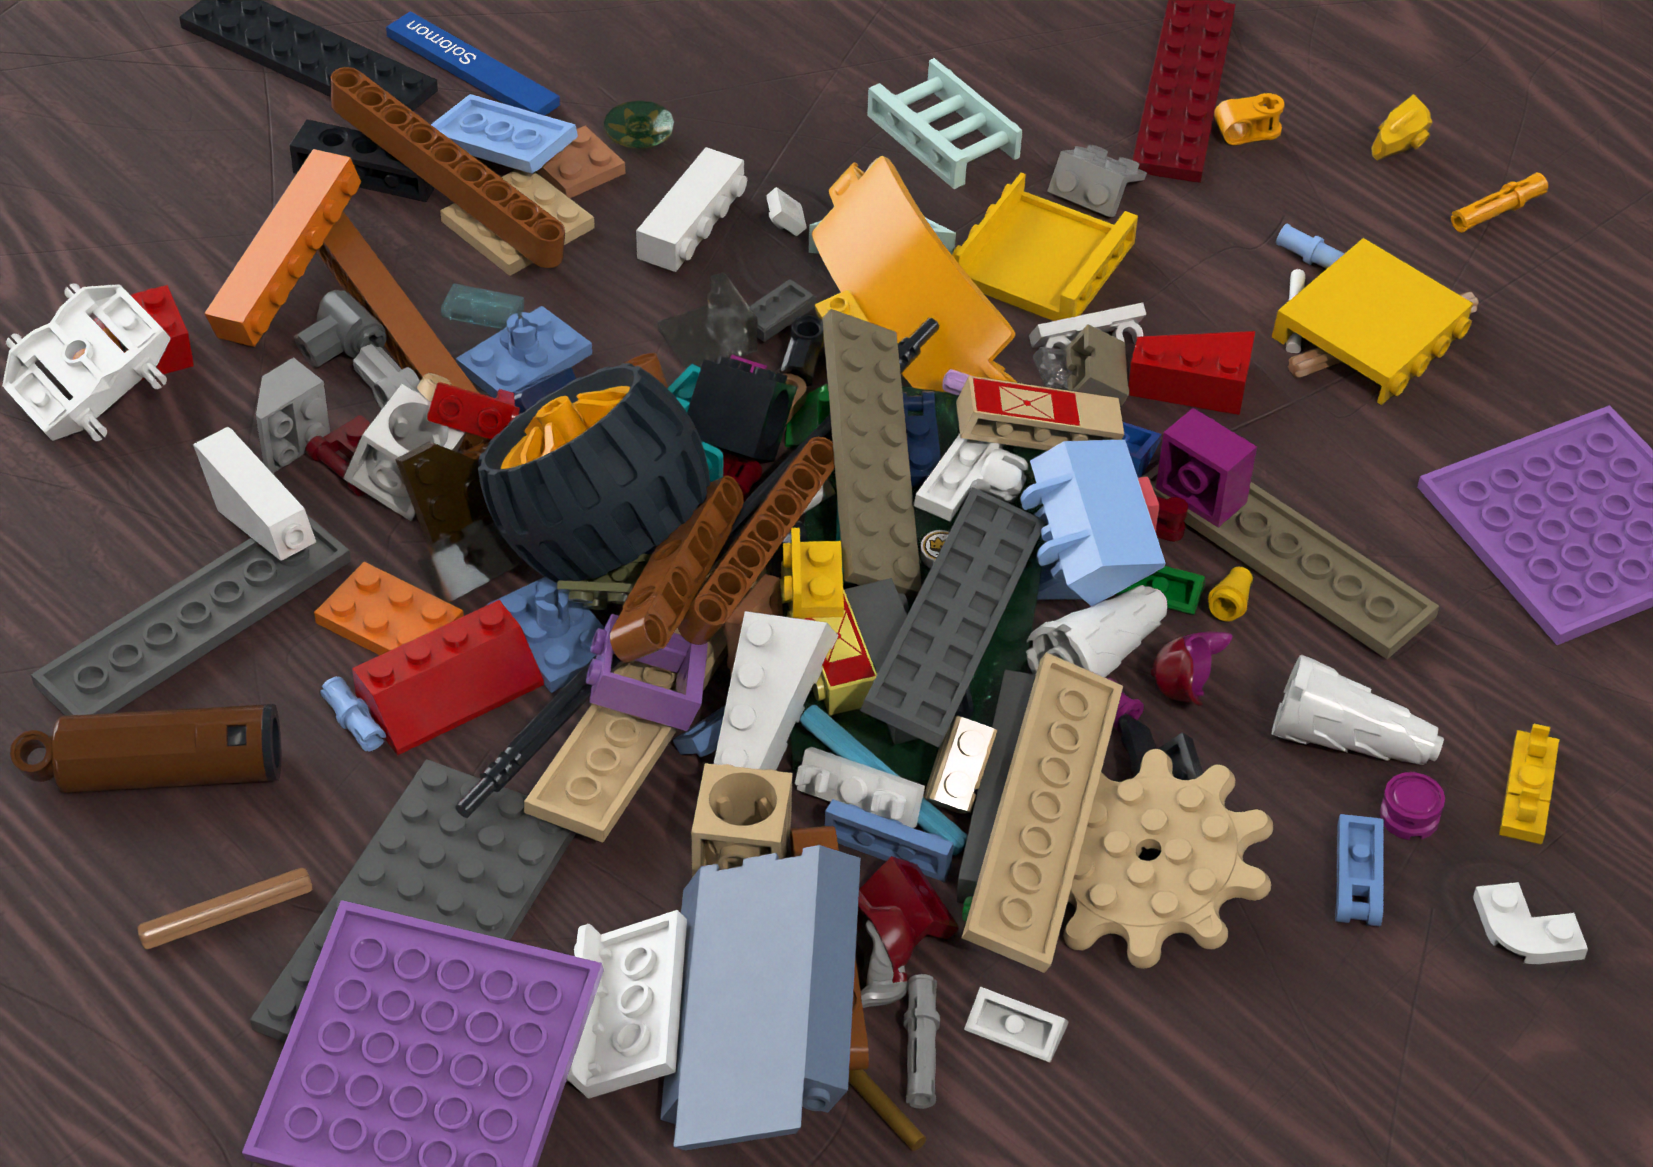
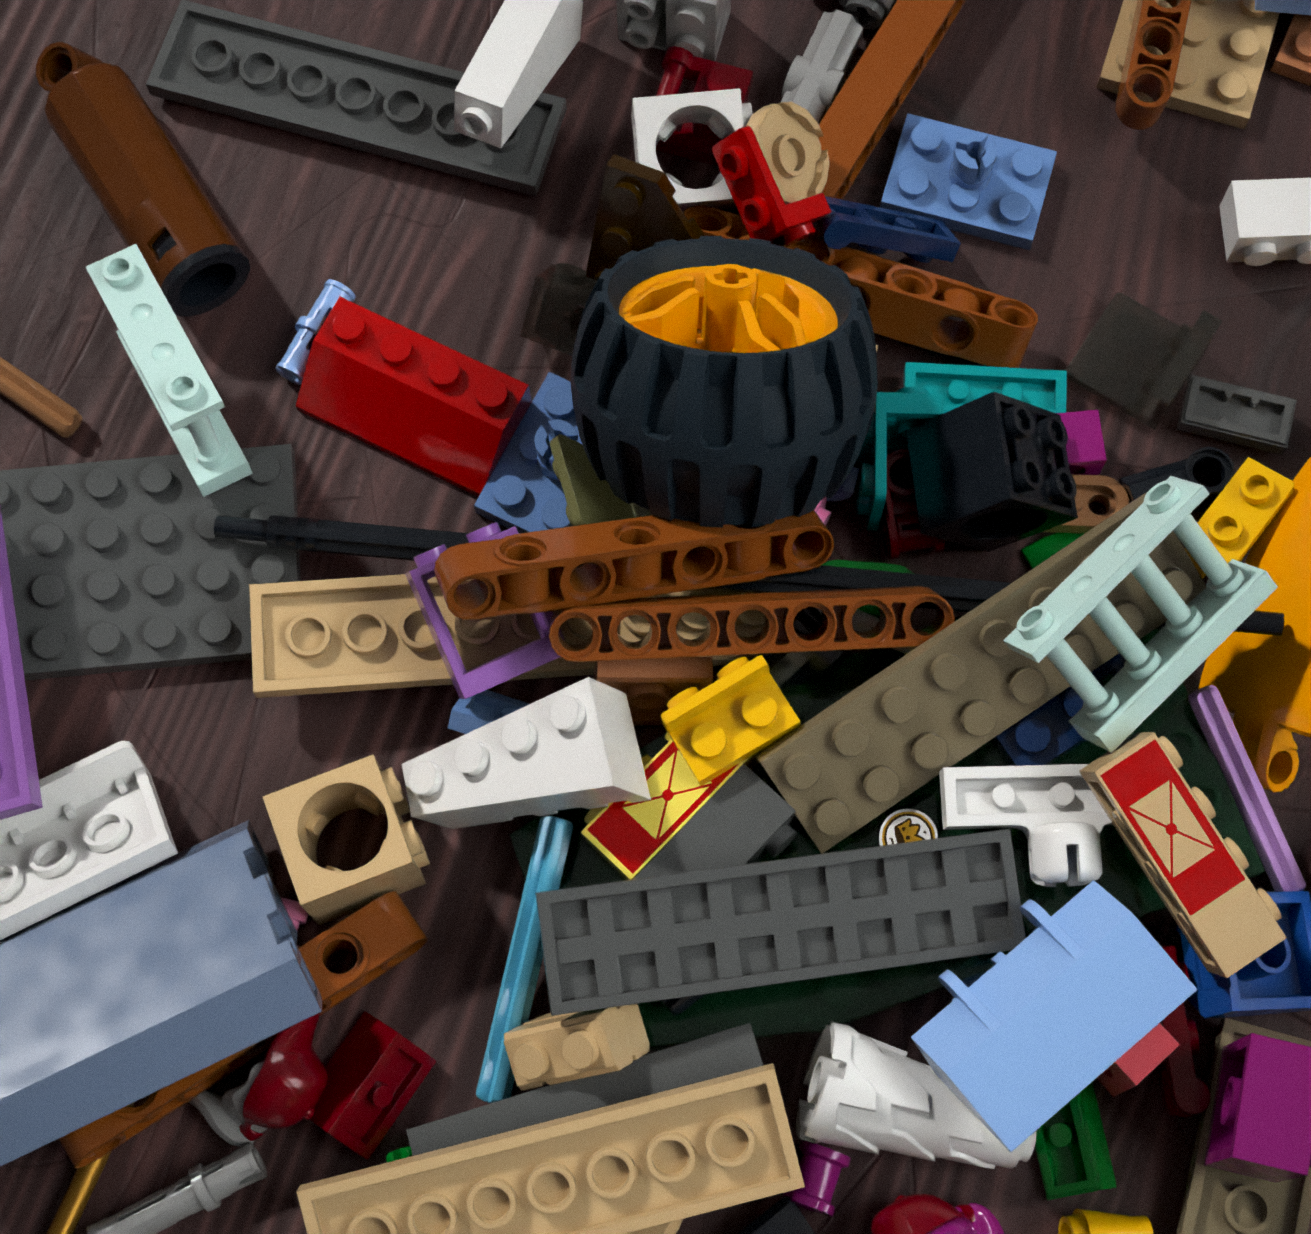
camera: 65 degrees right, 25 degrees up
(338, 799) = (169, 369): none -> light aqua fence
(382, 610) = (479, 281): orange plate -> none
(481, 306) = (1017, 90): clear light blue plate -> none
(859, 785) = (491, 939): white plate -> none
(889, 838) = (447, 1011): medium blue plate -> none
(916, 344) = (1177, 649): none -> light aqua fence

